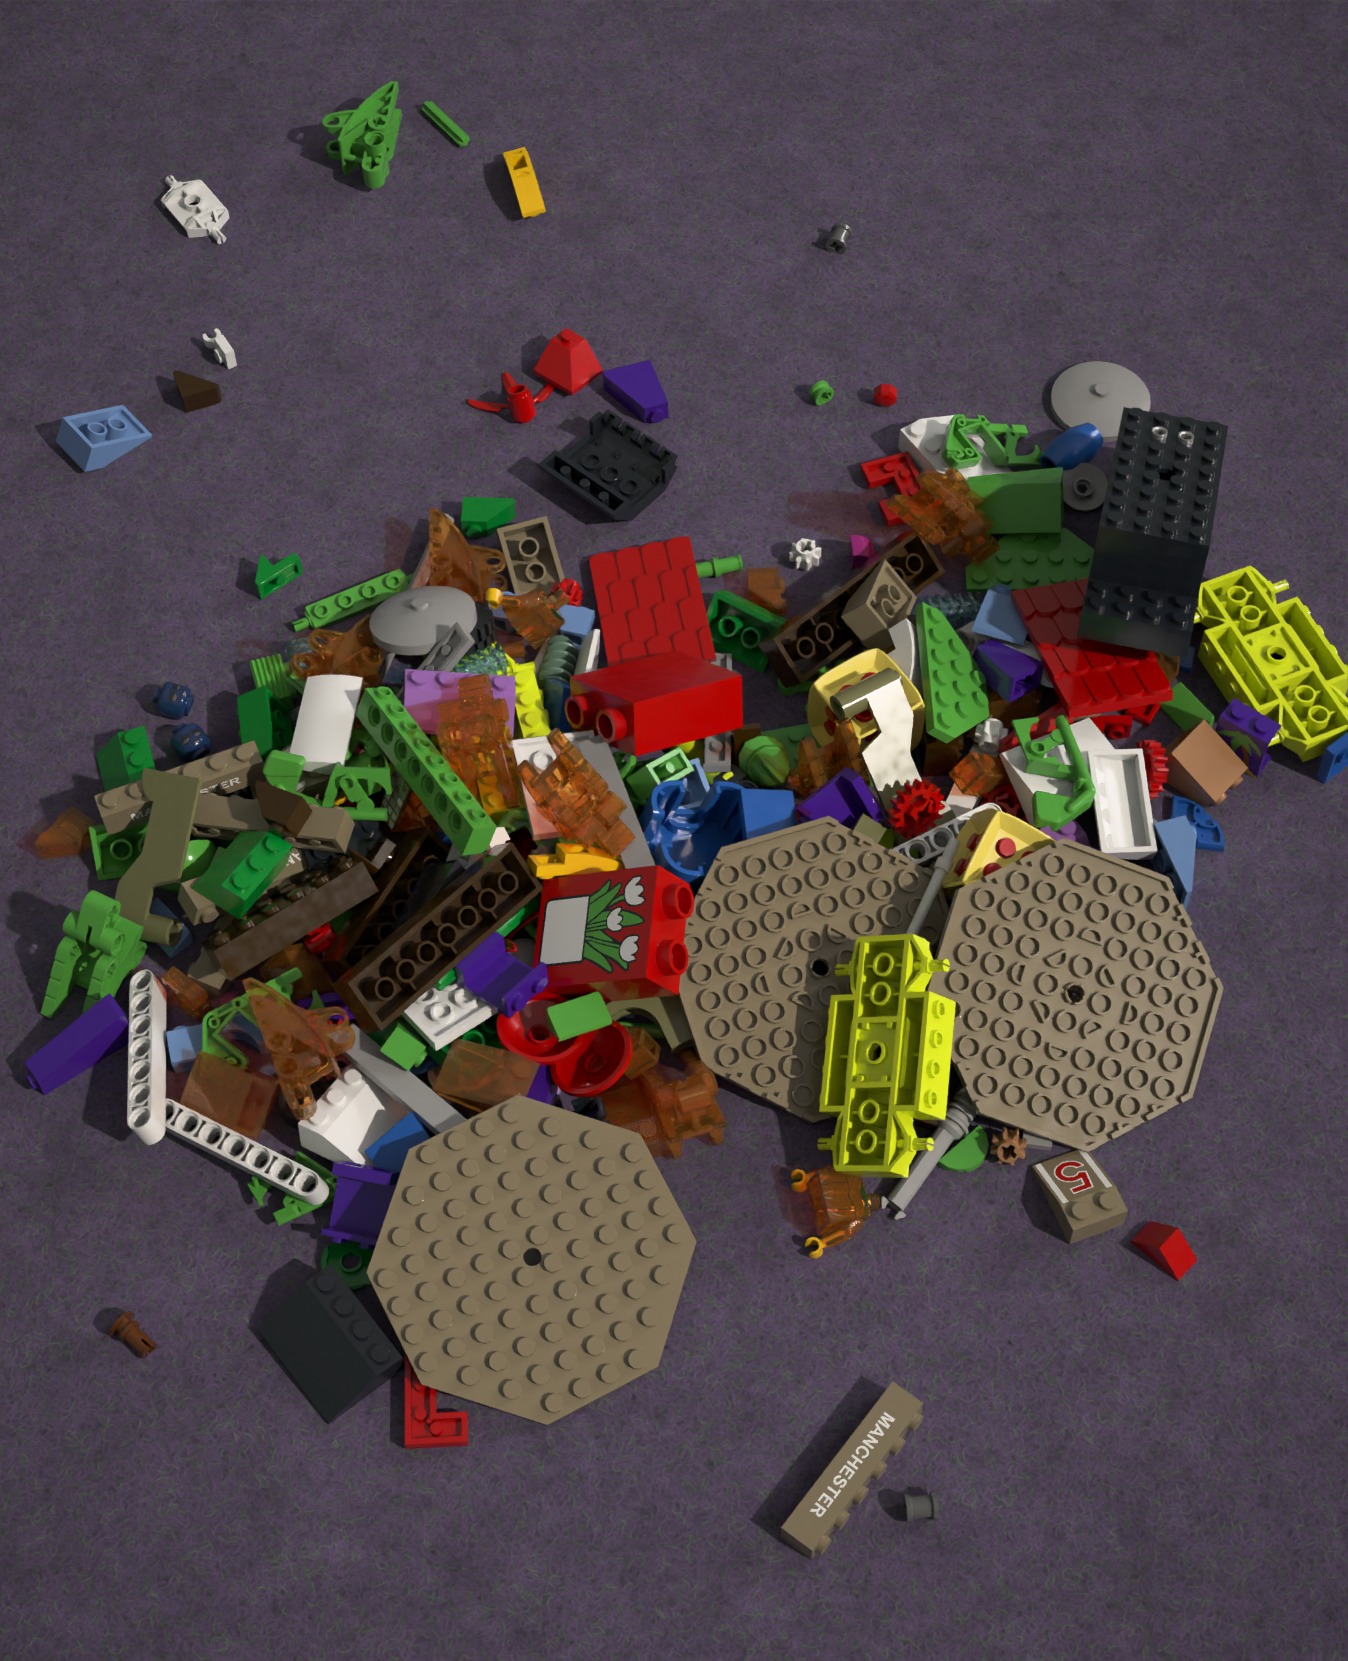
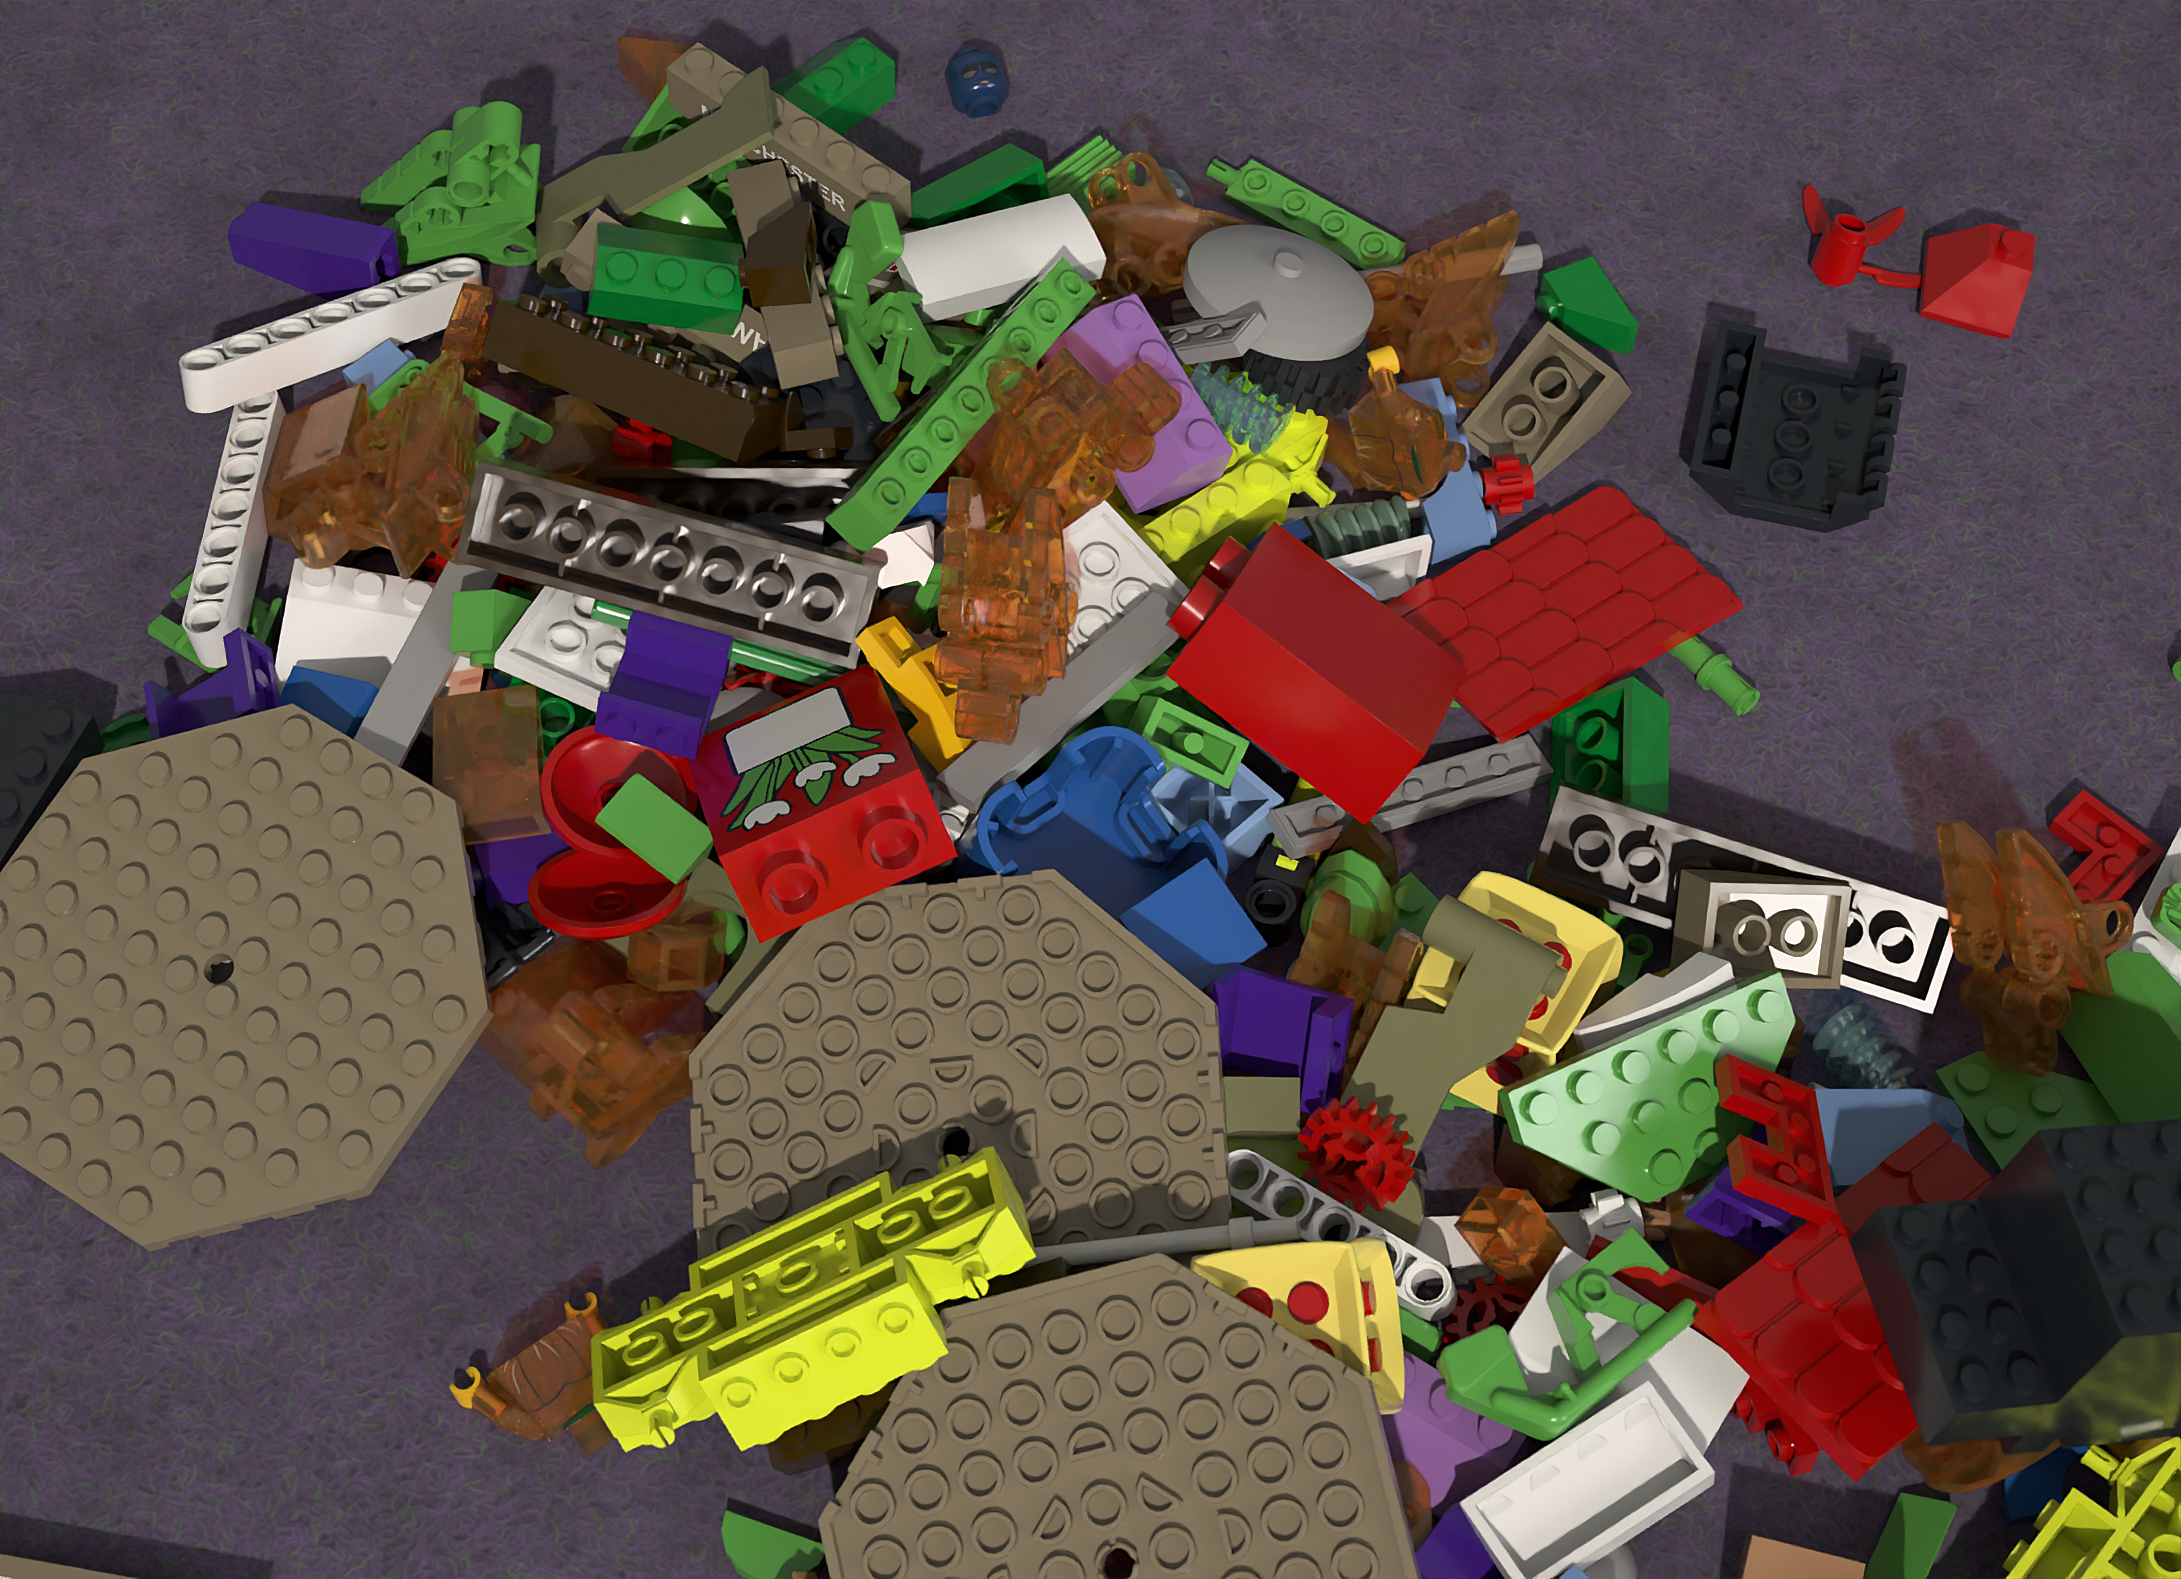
camera: 60 degrees right, 0 degrees up
(190, 742) = (914, 138): dark blue head -> none
(272, 577) = (1280, 94): green slope -> none
(637, 390) = (1999, 401): dark purple slope -> none
(765, 589) = (1712, 762): clear orange slope -> none
(805, 554) = (1830, 788): white gear -> none
(860, 550) = (1893, 863): magenta brick -> none
(958, 1118) = (793, 1498): light grey piece -> none
(1015, 649) = (1794, 1165): none -> red plate
(1144, 714) = (1875, 1487): red tile -> none
(1154, 766) = (1713, 1521): red gear -> none

